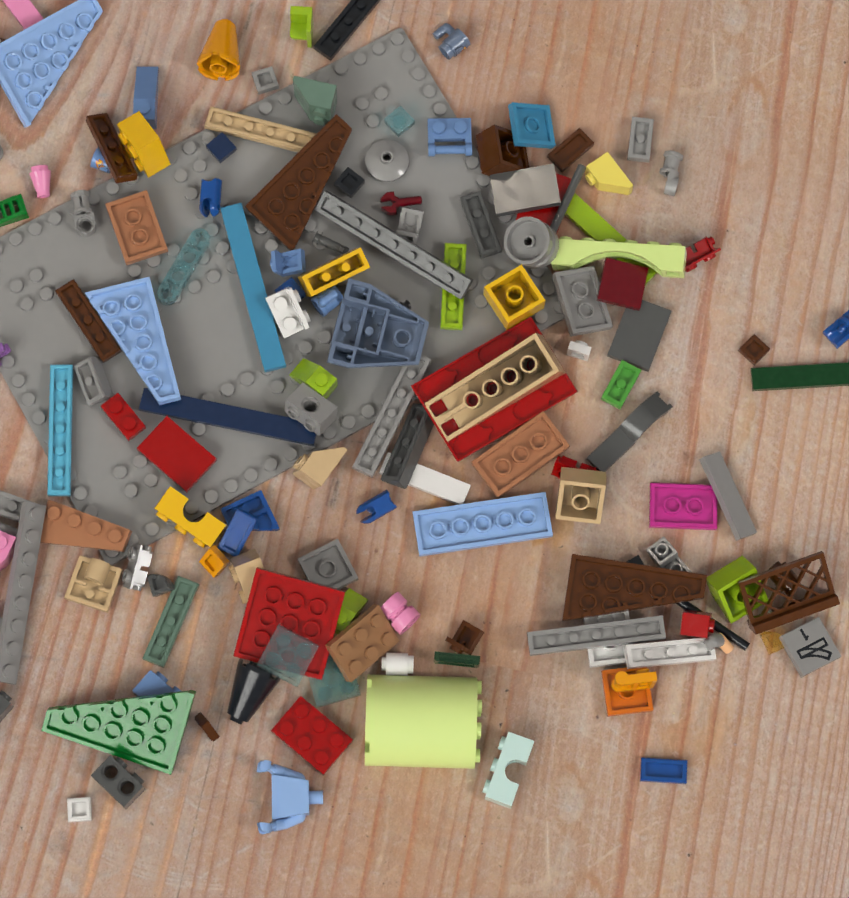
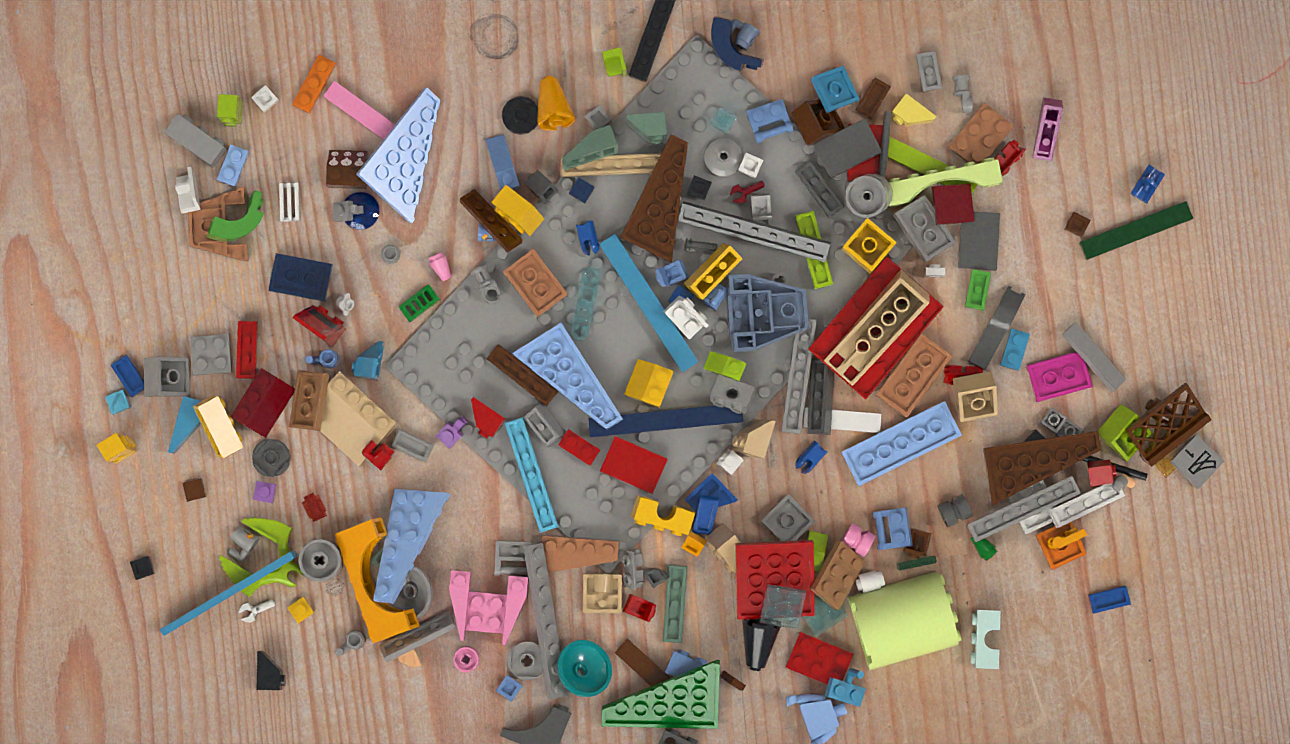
camera: 15 degrees left, 10 degrees up
(31, 354) = (486, 419): none -> red slope
(53, 652) = (592, 663): none -> teal dish
(108, 672) = (641, 663): none -> reddish brown tile
(129, 612) = (640, 608): none -> red bracket
(178, 130) = (541, 186): none -> dark grey brick
(182, 53) = (520, 115): none -> black tile
(224, 371) = (649, 383): none -> yellow slope
(246, 104) = (594, 146): none -> sand green slope
(285, 484) = (730, 461): none -> white brick
(328, 775) = (845, 690): none -> dark azure plate
(413, 176) = (750, 165): none -> white plate
(425, 41) = (723, 45): none -> dark blue arch
(449, 614) = (898, 527): none -> medium blue plate
(520, 614) = (955, 510): none -> dark grey wheel
(539, 668) = (985, 548): none -> green cone
(642, 462) = (1014, 349): none -> dark azure plate
(677, 221) = (981, 135): none -> nougat plate
(751, 238) = (1047, 128): none -> magenta slope

